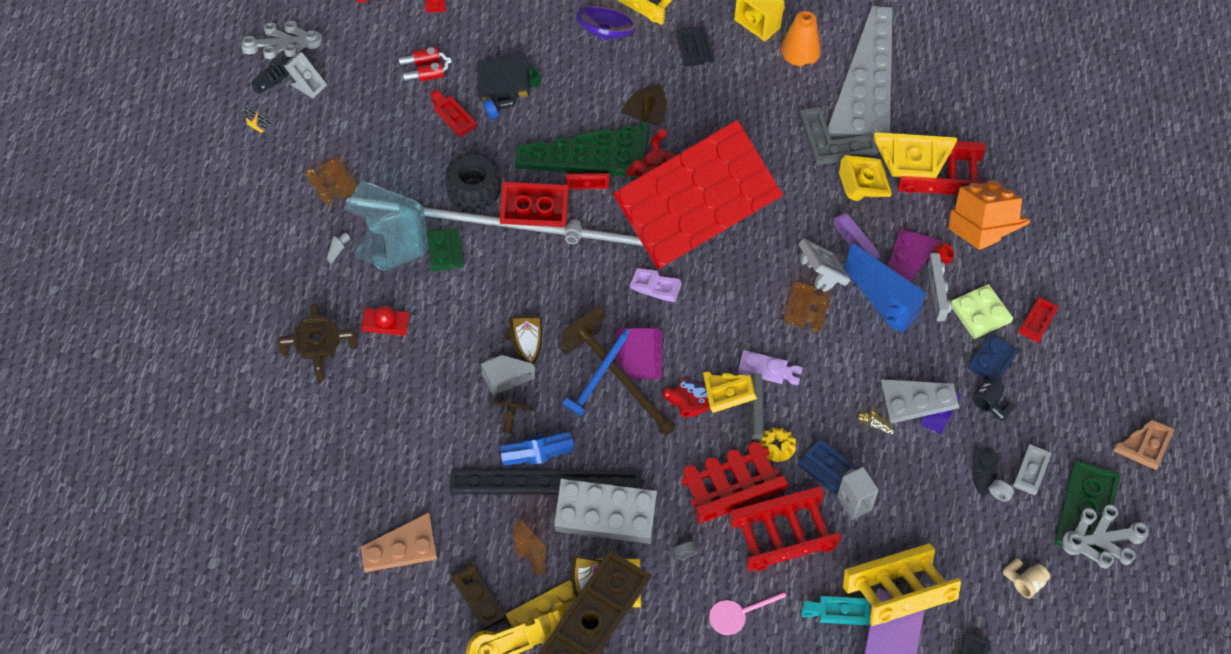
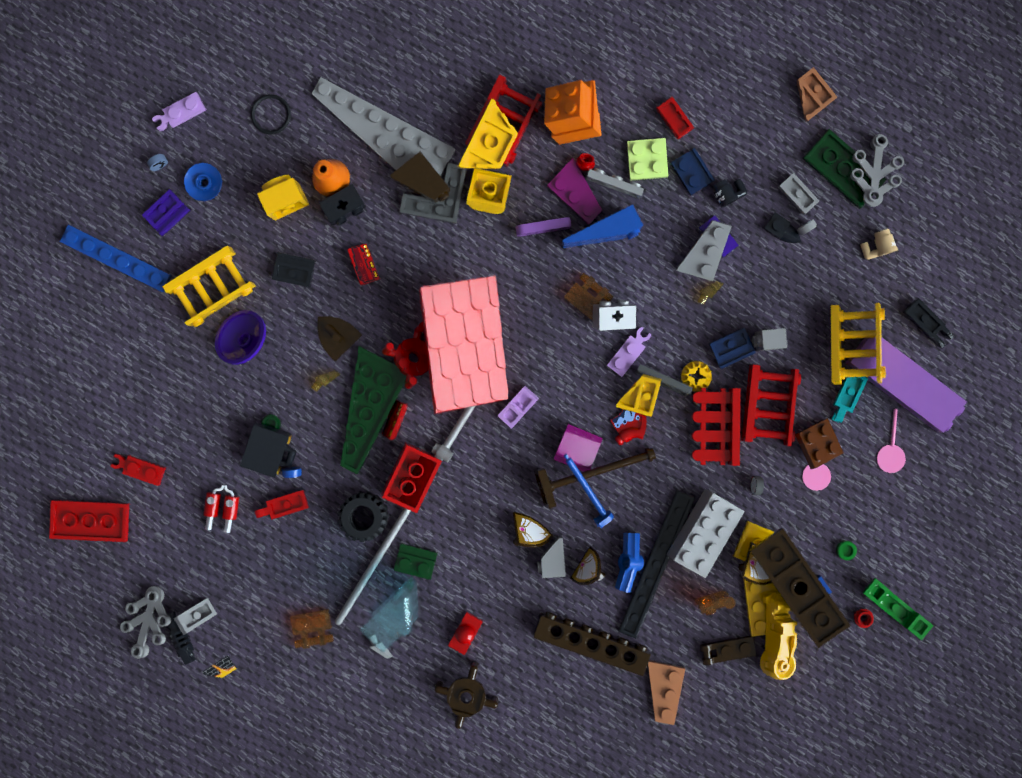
camera: 65 degrees left, 30 degrees up
(426, 501) = (636, 664): none -> dark brown brick
(597, 107) = (324, 379): none -> clear yellow bar
(730, 100) = (363, 264): none -> slope
(767, 597) = (819, 443): none -> reddish brown plate
(780, 63) = (333, 208): none -> black brick
(800, 344) = (624, 318): none -> brick
(831, 269) = (550, 261): light grey piece -> none
(844, 111) = (421, 178): none -> dark brown slope

